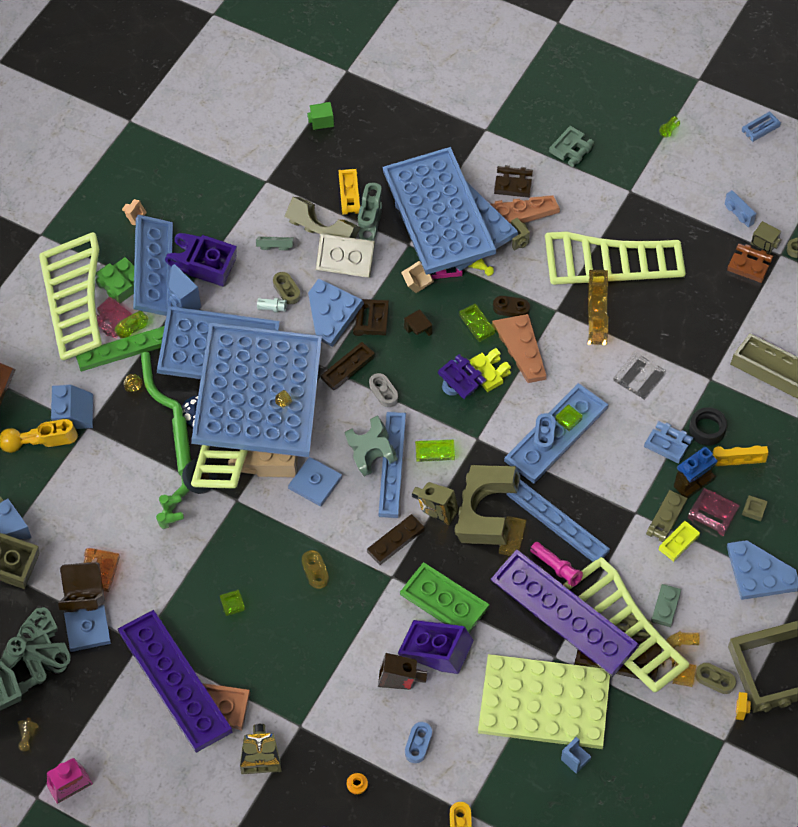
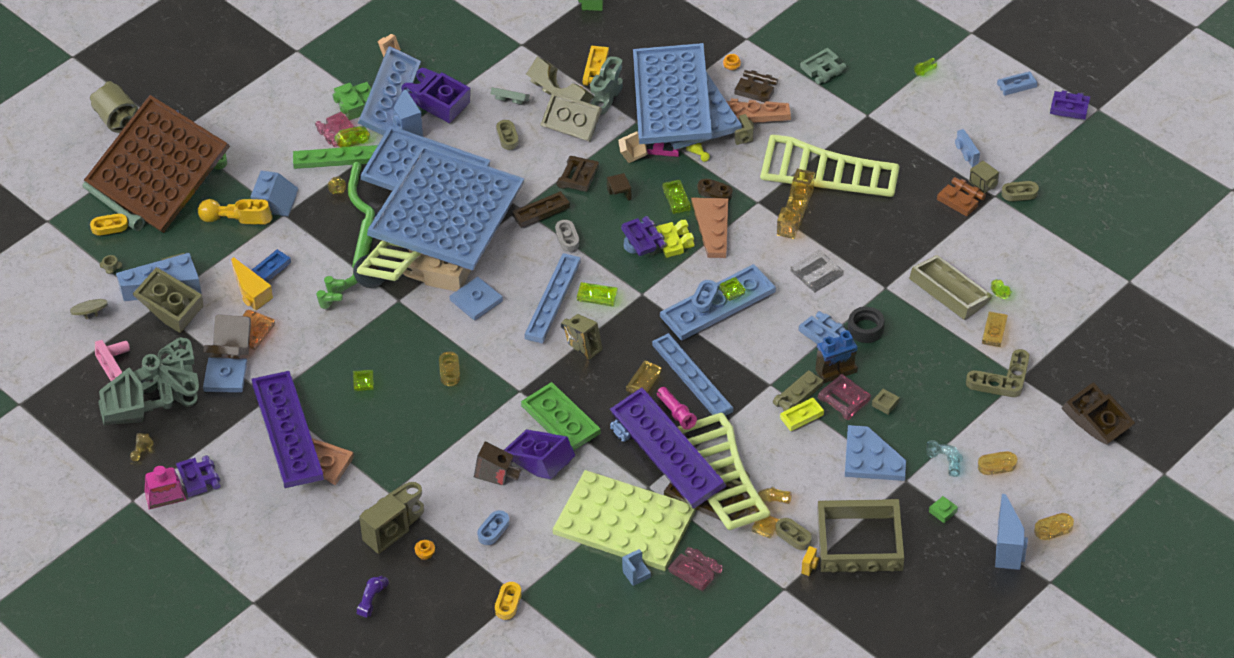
camera: 15 degrees right, 10 degrees down
(85, 522) = (253, 288): none -> yellow slope
(89, 299) = (320, 108): yellowish green bar -> none
(92, 758) = (192, 478): none -> dark purple plate
(95, 491) = (272, 265): none -> blue plate
(259, 752) = (343, 504): olive torso -> none
(272, 304) = (490, 146): light aqua pin -> none
(283, 399) = (465, 216): clear yellow hinge -> none
(314, 759) = (390, 517): none -> olive brick
(332, 310) = (543, 161): medium blue plate -> none
(370, 446) = (536, 276): sand green piece -> none
(395, 539) = (533, 360): dark brown plate -> none
(480, 483) = (629, 327): olive arch -> none
(481, 155) = (731, 62): none -> light orange plate
(507, 600) = (620, 431): none -> medium blue piece
(631, 745) = (691, 571): none -> clear pink plate
(666, 605) = (769, 465): sand green plate -> none
(740, 455) = (886, 354): yellow plate -> none

